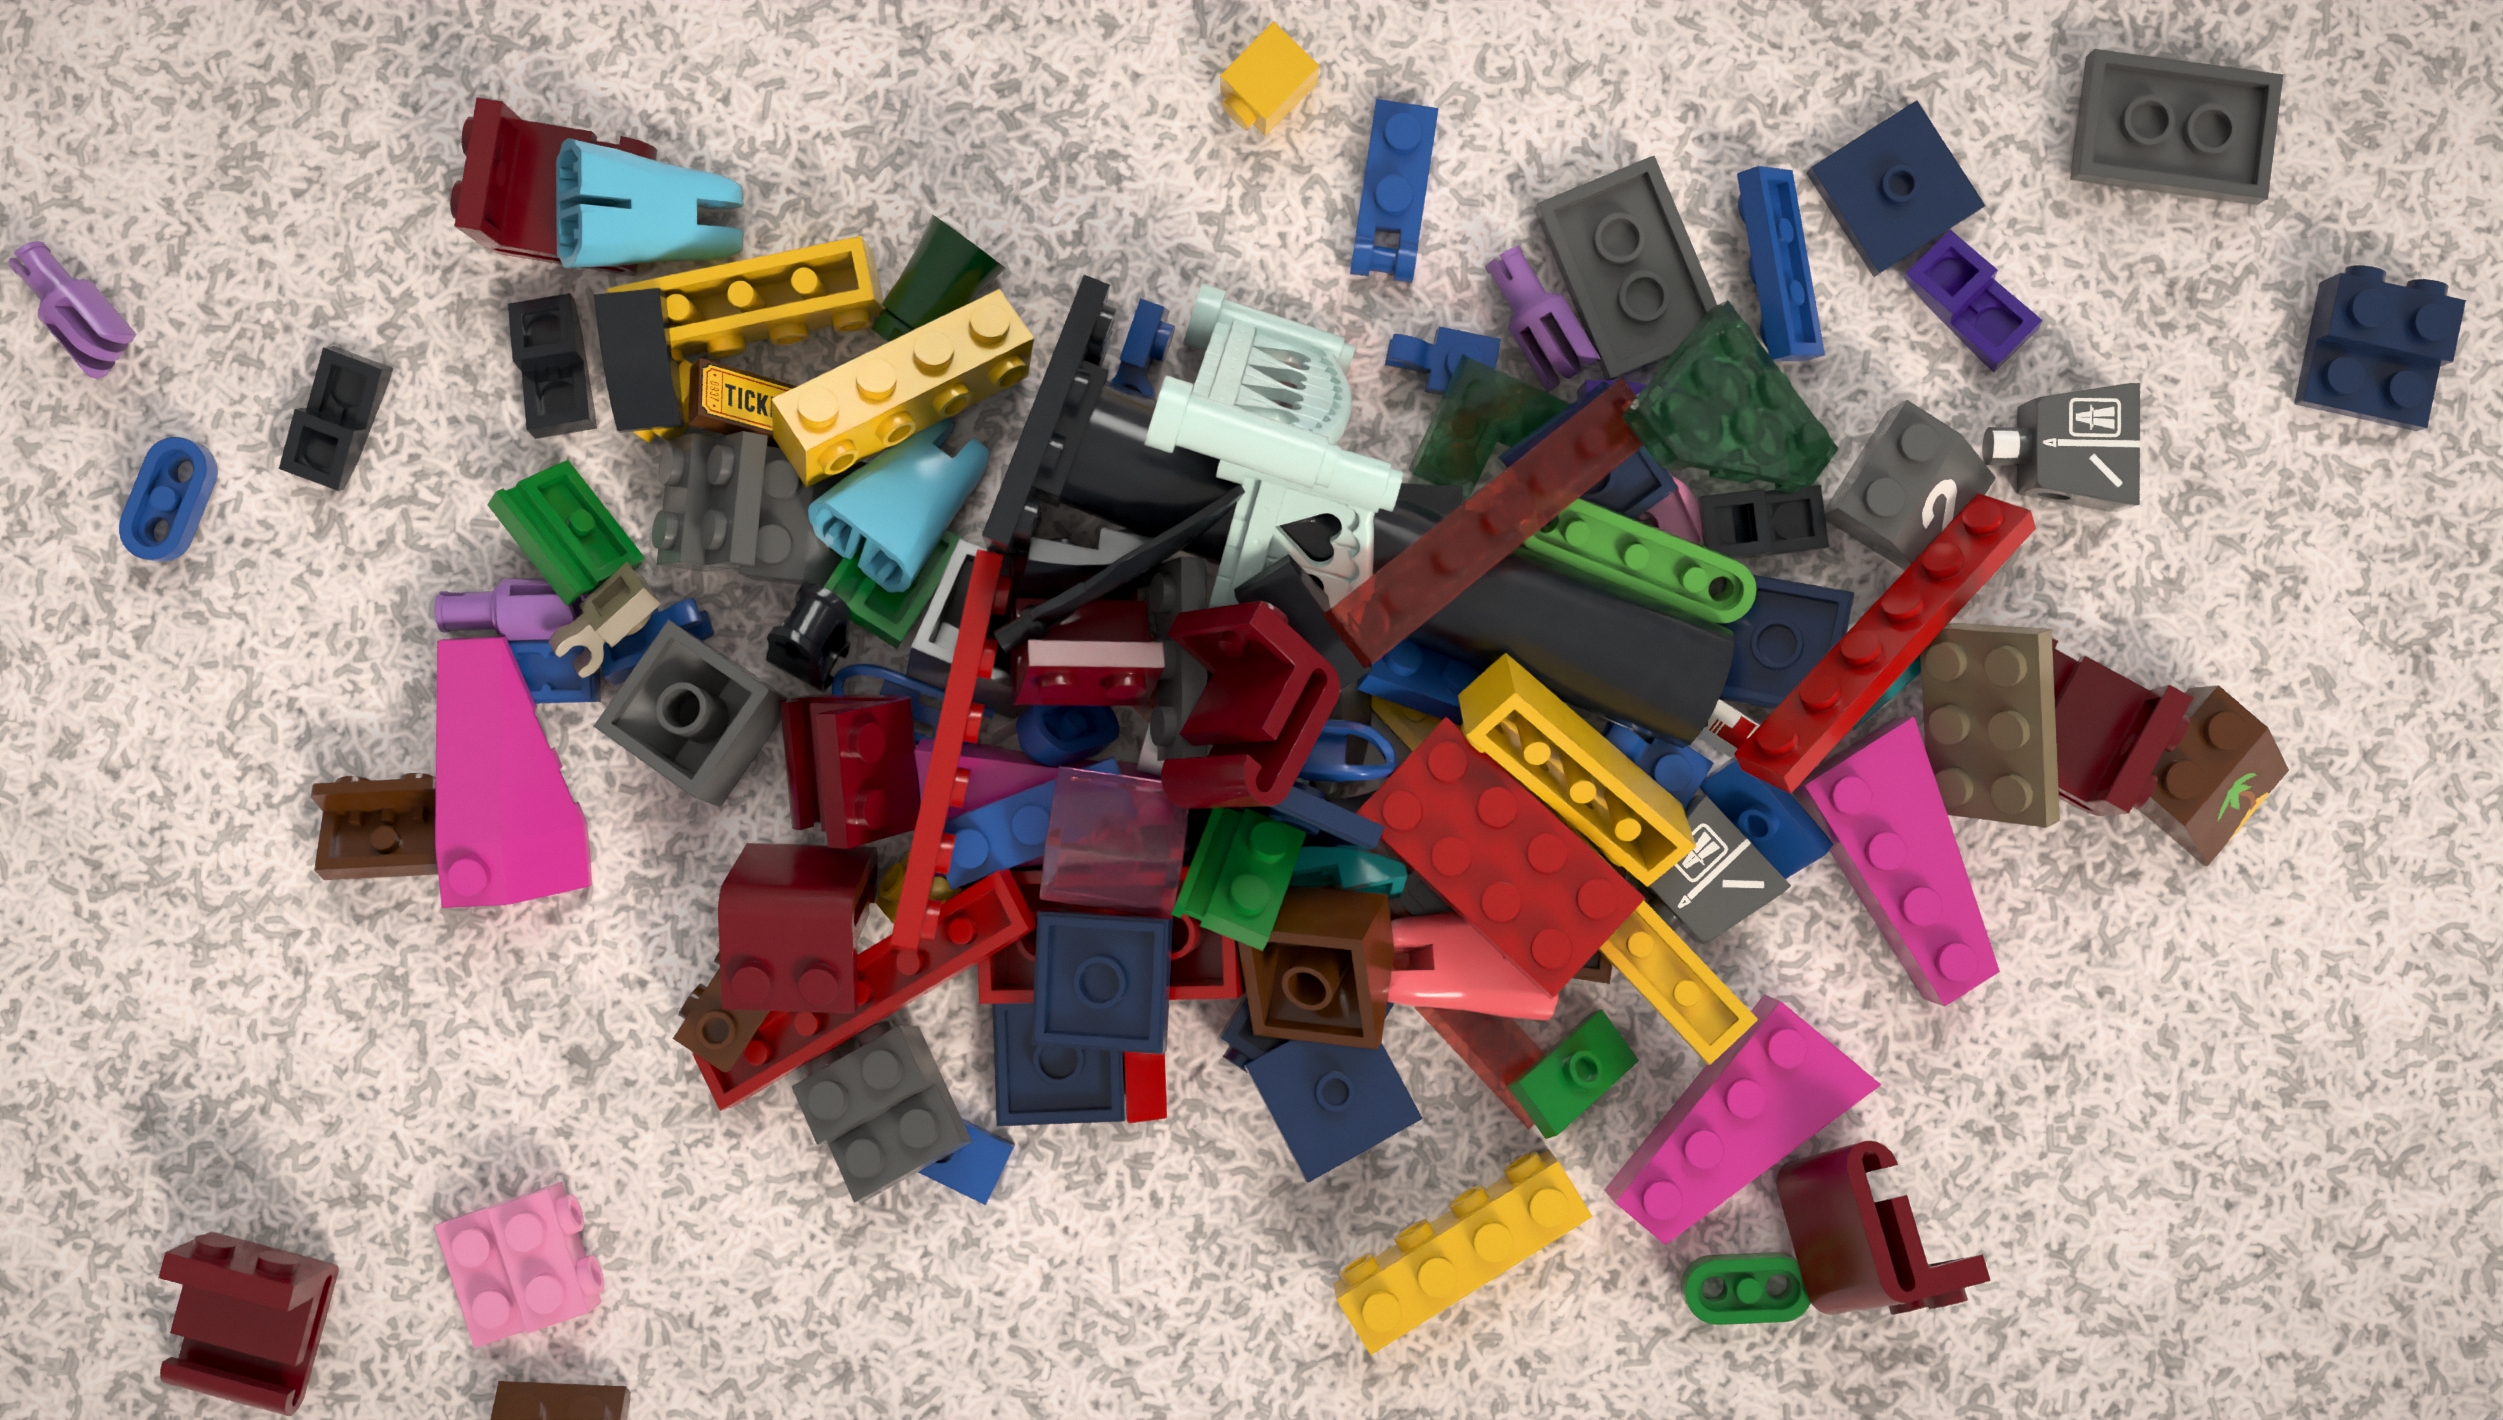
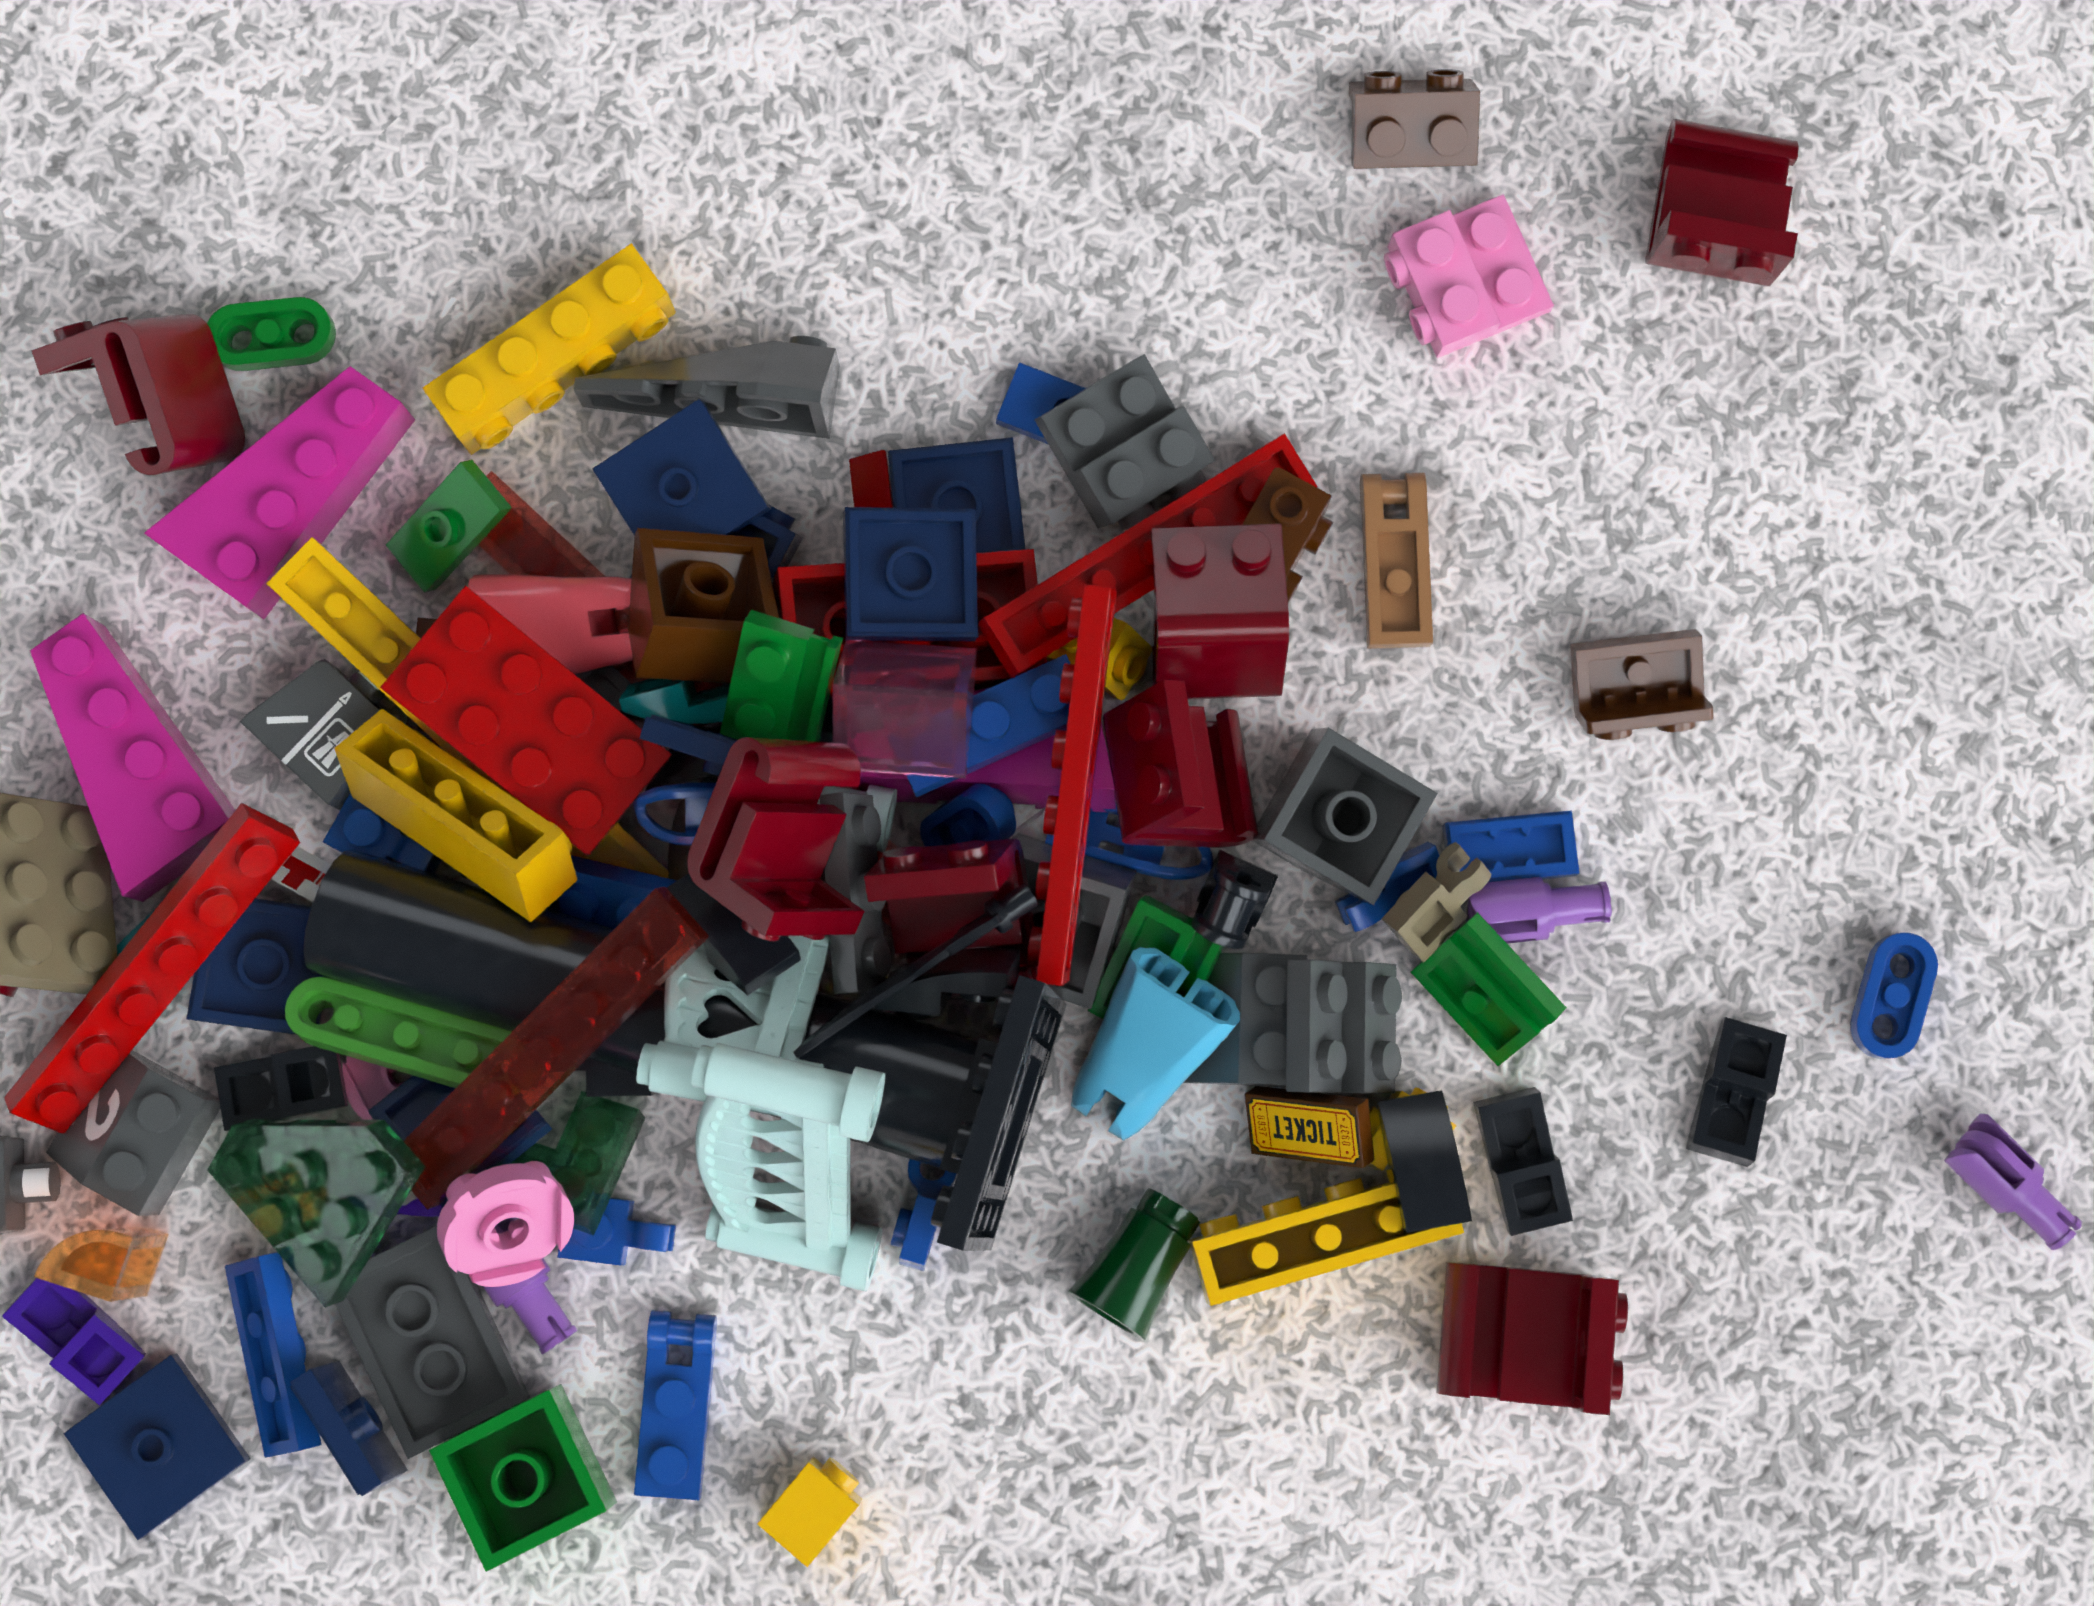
camera: 175 degrees right, 5 degrees down
(500, 796) = (1524, 715): dark pink wedge -> none
(619, 971) = (1396, 563): none -> medium nougat plate
(637, 209) = (1445, 1319): medium azure piece -> none
(901, 387) = (1156, 1152): yellow brick -> none
(1259, 1197) = (749, 386): none -> dark grey wedge
(1528, 384) = (485, 1199): none -> bright pink plate
(1542, 126) = (523, 1477): none -> green brick
(1709, 182) = (348, 1427): none -> dark blue plate
(1767, 818) = (257, 778): blue plate -> none
(1939, 356) = (106, 1262): none -> clear orange brick

